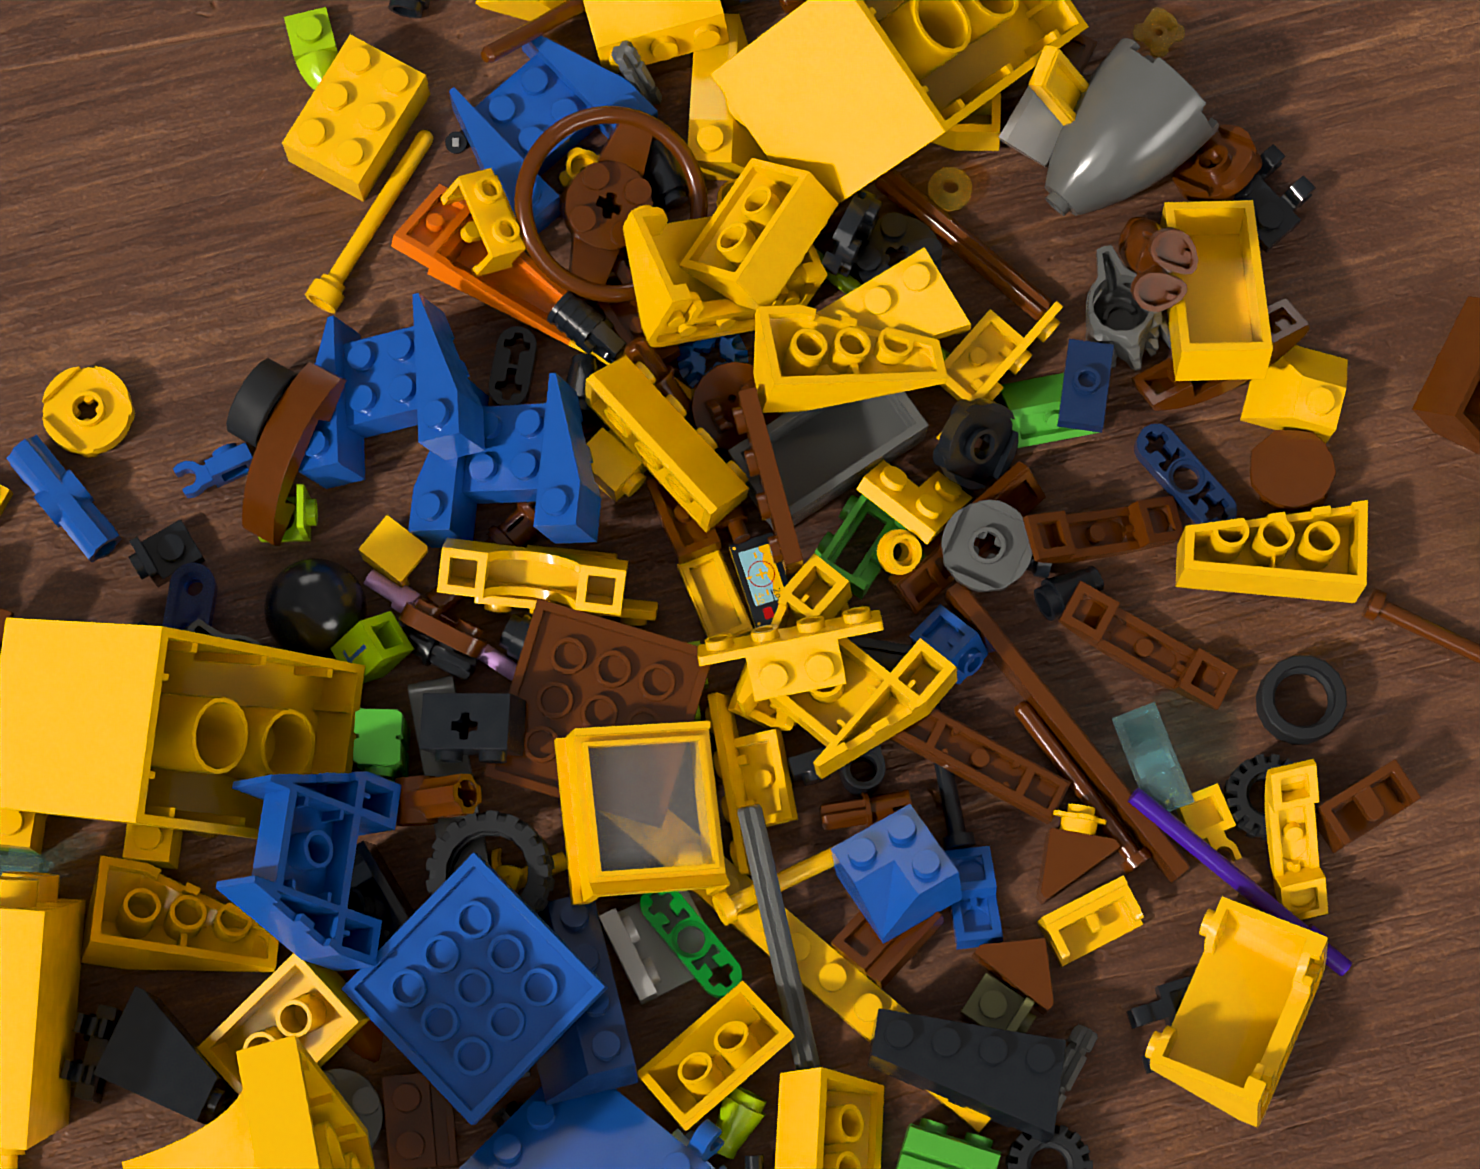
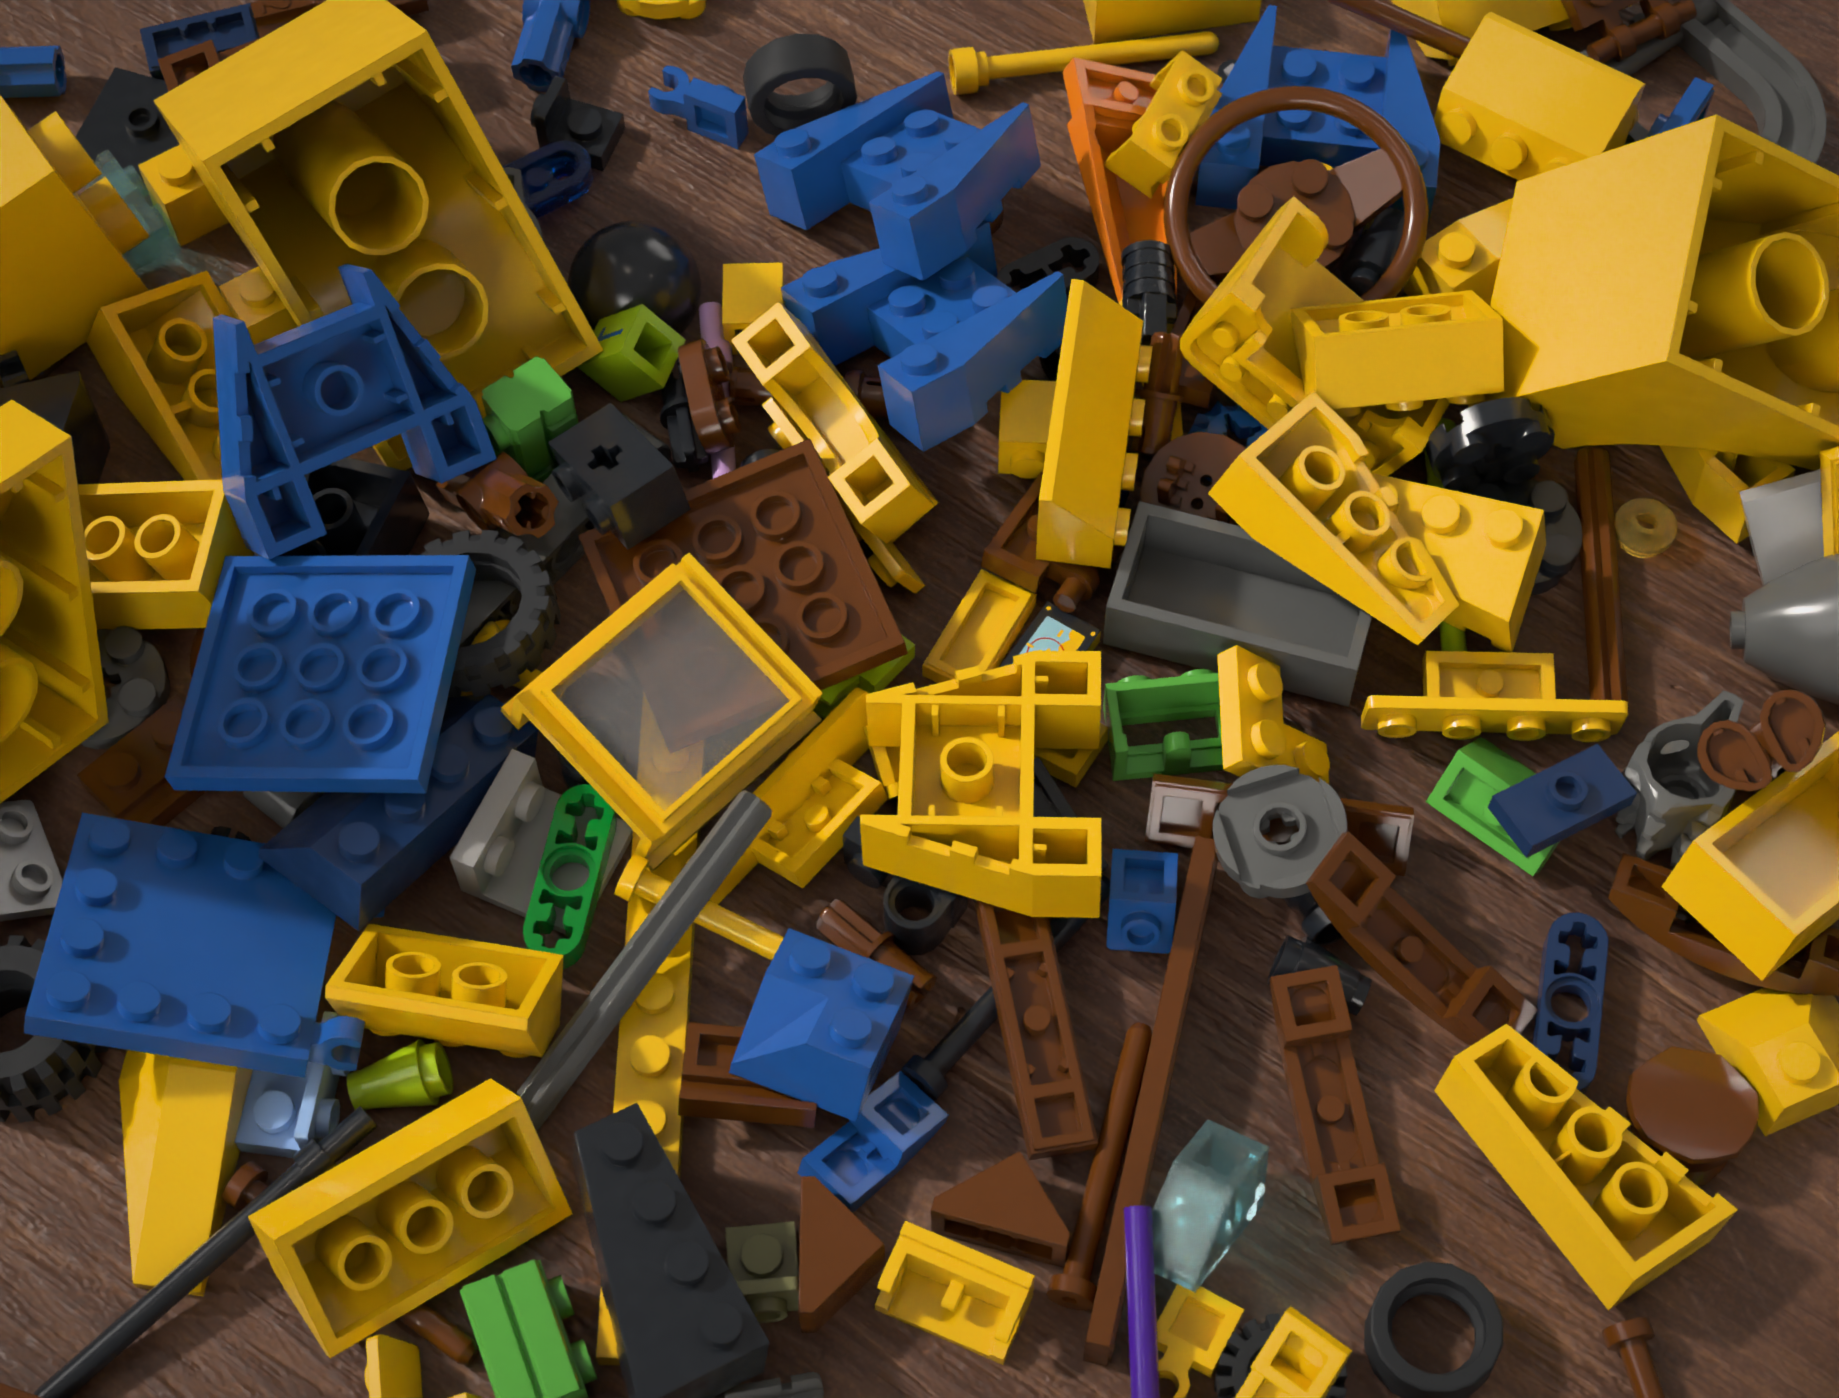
camera: 55 degrees right, 15 degrees down
(282, 448) = (833, 101): reddish brown slope -> none
(304, 517) = (718, 199): lime bracket -> none
(636, 71) = (1456, 149): dark grey axle -> none
(762, 463) = (1149, 538): reddish brown plate -> none
(795, 656) = (957, 706): yellow bracket -> none
(910, 554) = (1210, 751): yellow plate -> none
(967, 423) = (1397, 707): black plate -> none
(1079, 819) = (1061, 1181): yellow plate -> none

